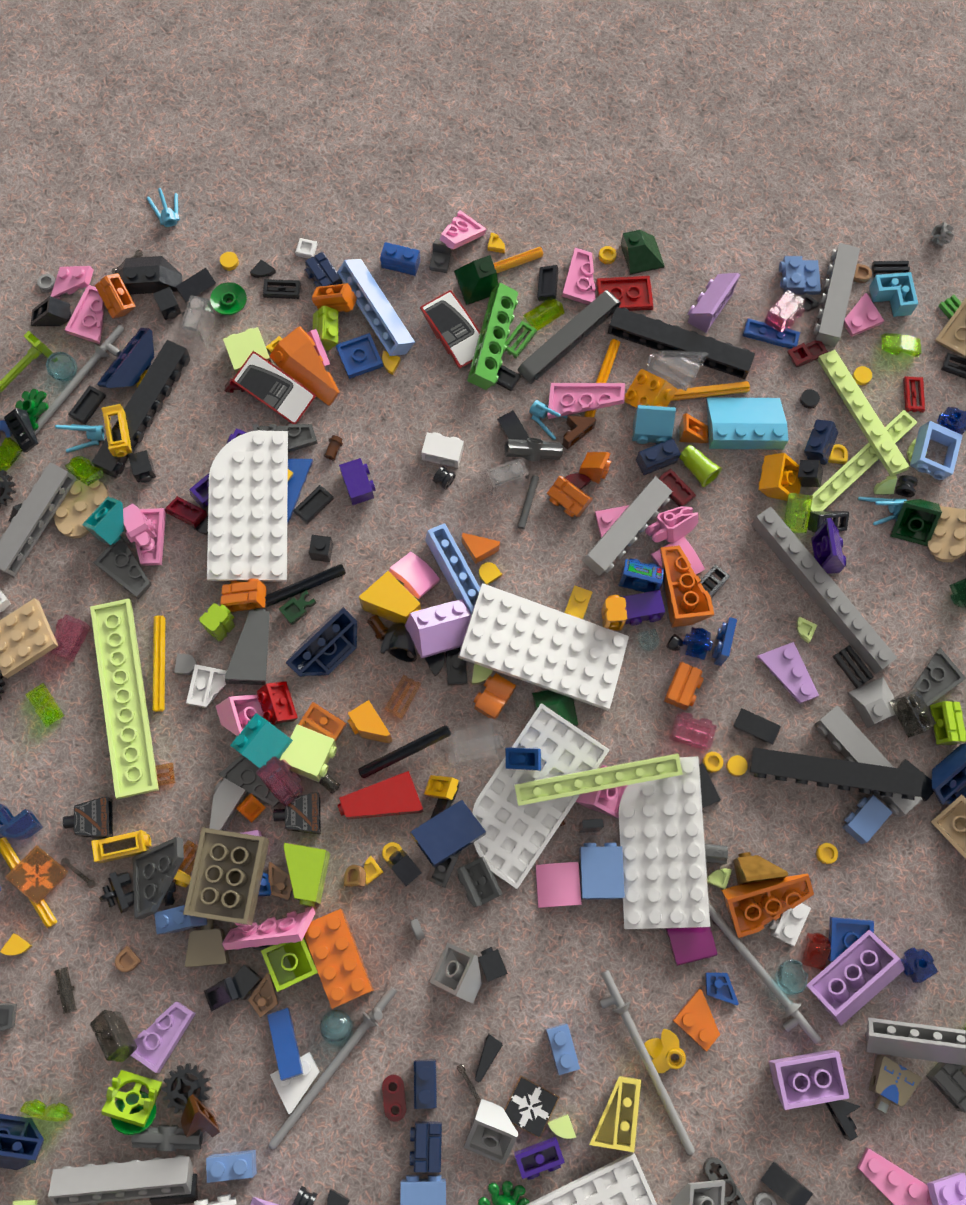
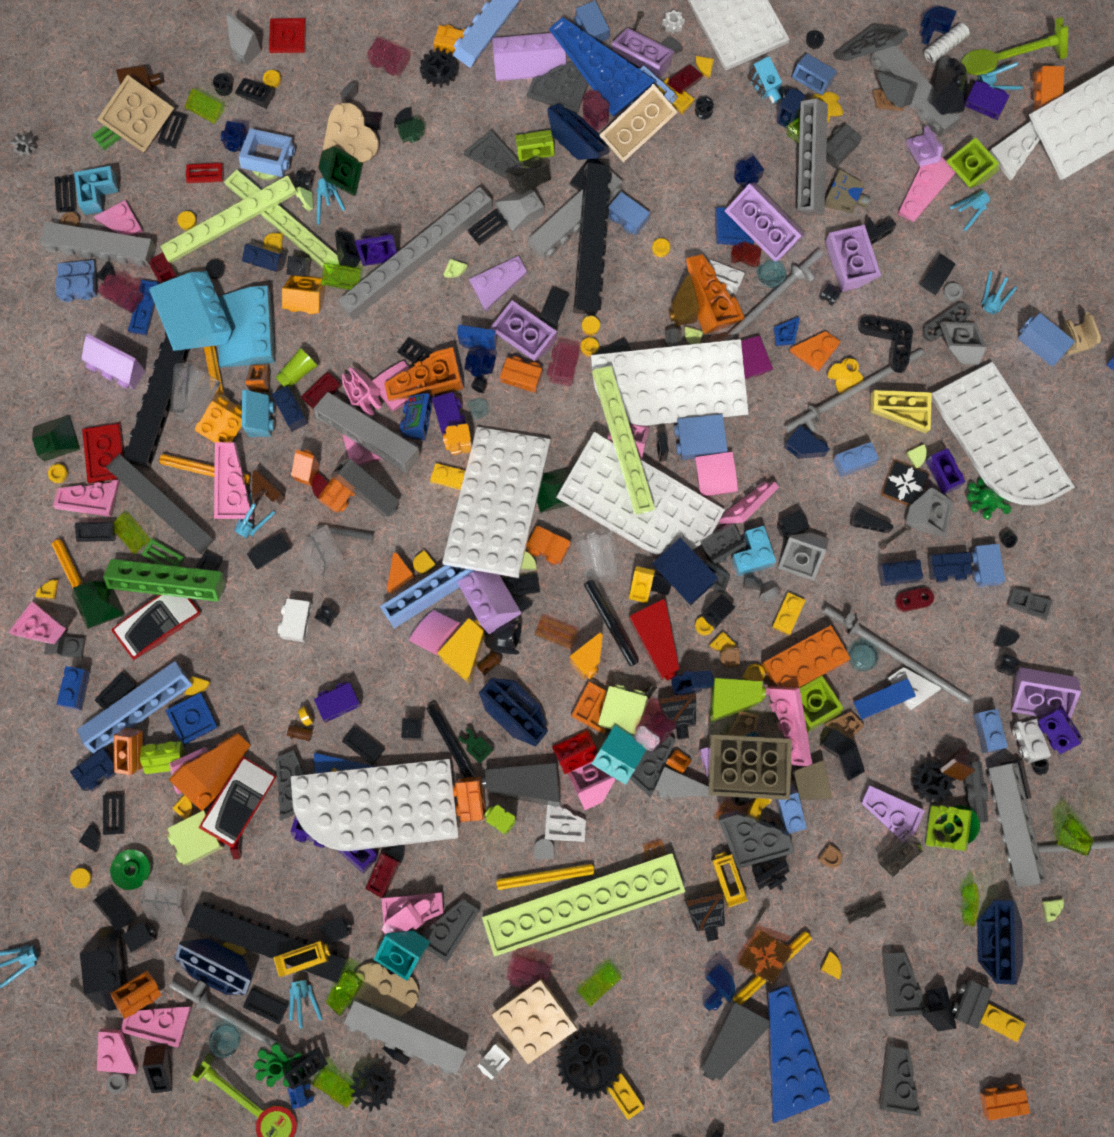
camera: 90 degrees left, 5 degrees up
(306, 248) = (61, 794): white tile -> none
(329, 829) = (692, 681): none -> dark blue brick
(333, 900) = (754, 673): none -> yellow tile
(348, 453) = (305, 716): none -> yellow tile
(394, 295) = (115, 691): none -> black tile
(394, 947) = (788, 614): none -> yellow plate
(430, 915) = (750, 583): none -> flat silver tile
(462, 921) = (759, 553): none -> medium azure brick
(519, 916) = (748, 505): none -> bright pink wing
(523, 758) = (612, 505): blue slope -> none
(533, 449) = (290, 529): dark grey piece -> none
(567, 518) = (365, 487): none -> dark grey slope
(583, 991) = (805, 445): none -> dark blue slope
(712, 1120) = (895, 334): none -> black beam
(729, 690) = (524, 331): none -> lavender slope
(761, 368) = (191, 311): none -> medium azure slope
(764, 1046) = (831, 294): none -> black wheel
(901, 343) = (150, 184): clear neon green slope -> none

